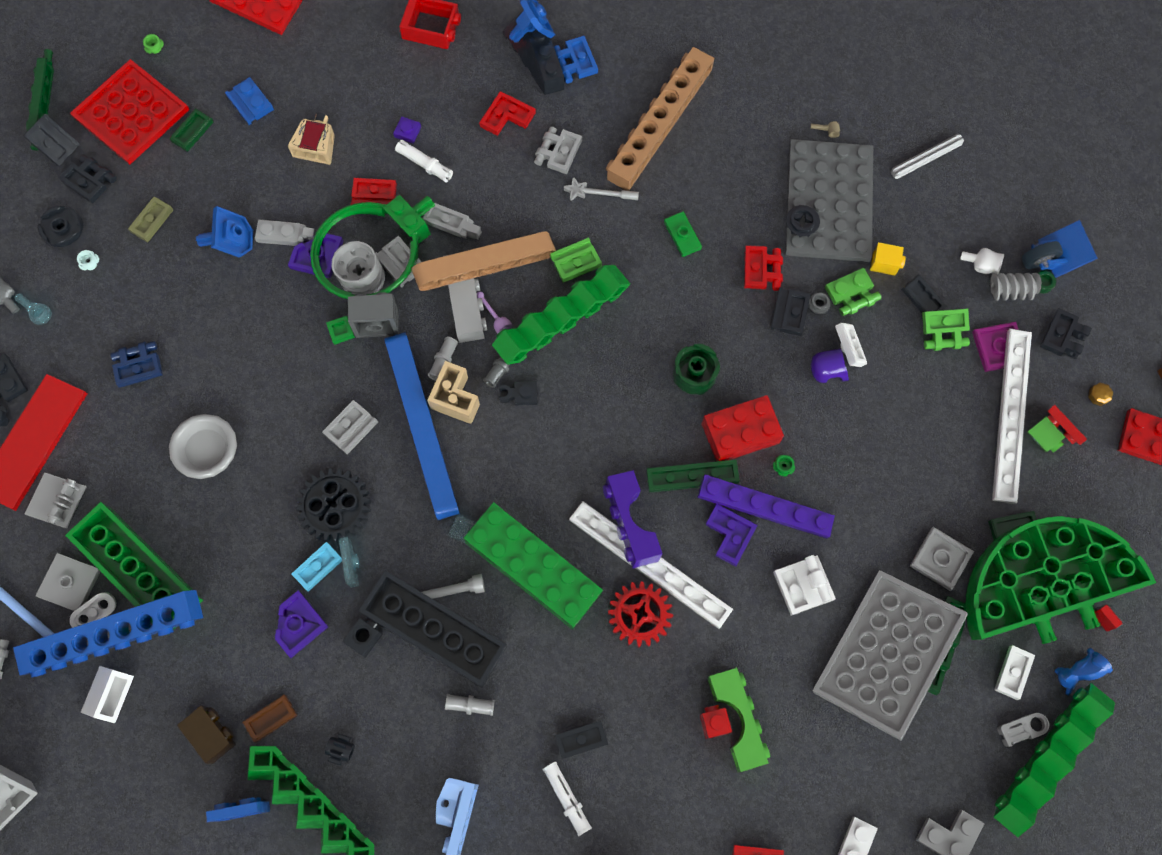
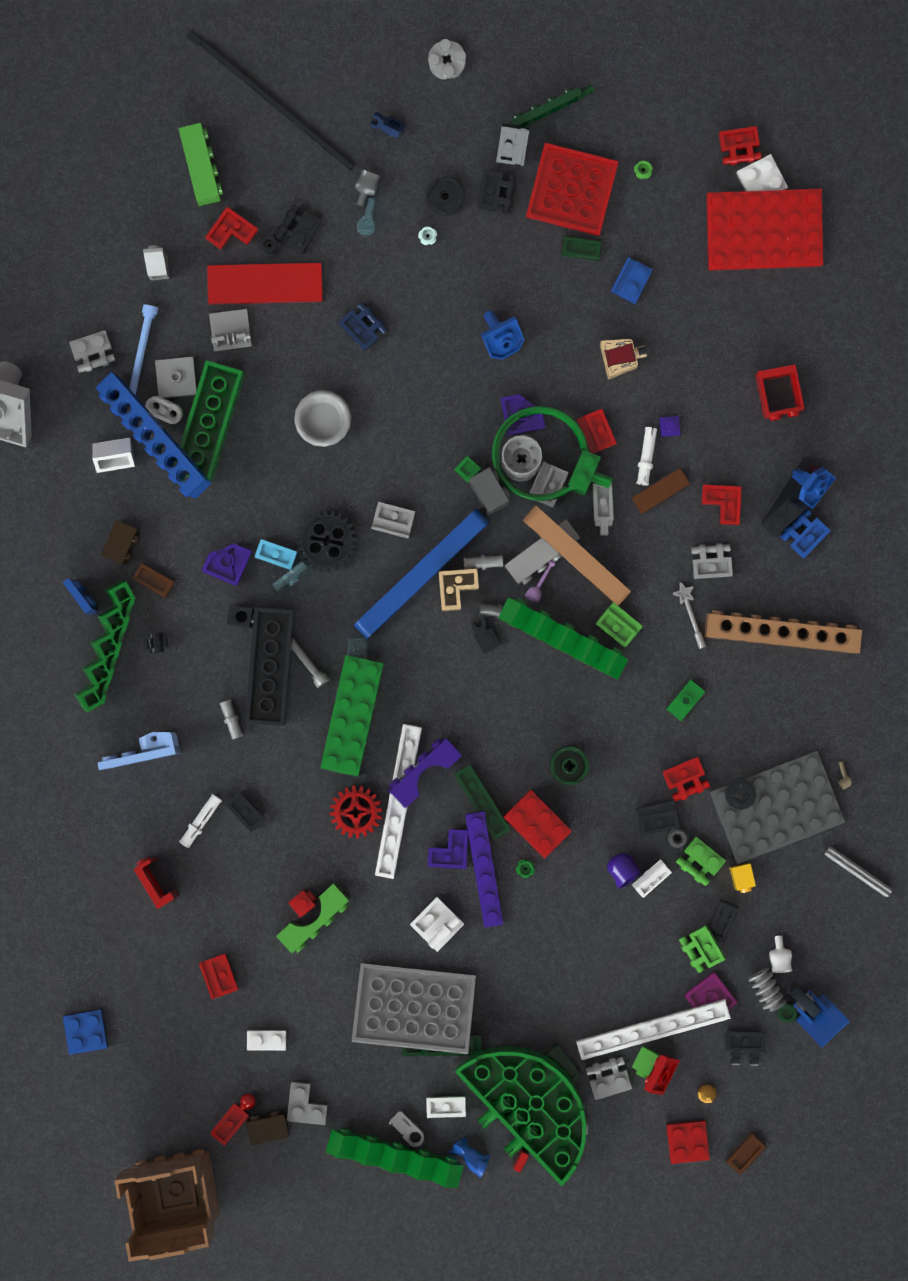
camera: 65 degrees right, 15 degrees up
(150, 219) = (486, 264): olive plate -> none
(283, 233) = (527, 376): light grey hinge -> none
(464, 165) = (660, 491): none -> reddish brown tile
(941, 558) = (508, 1019): light grey plate -> none
(1054, 485) = (609, 1084): none -> light grey plate

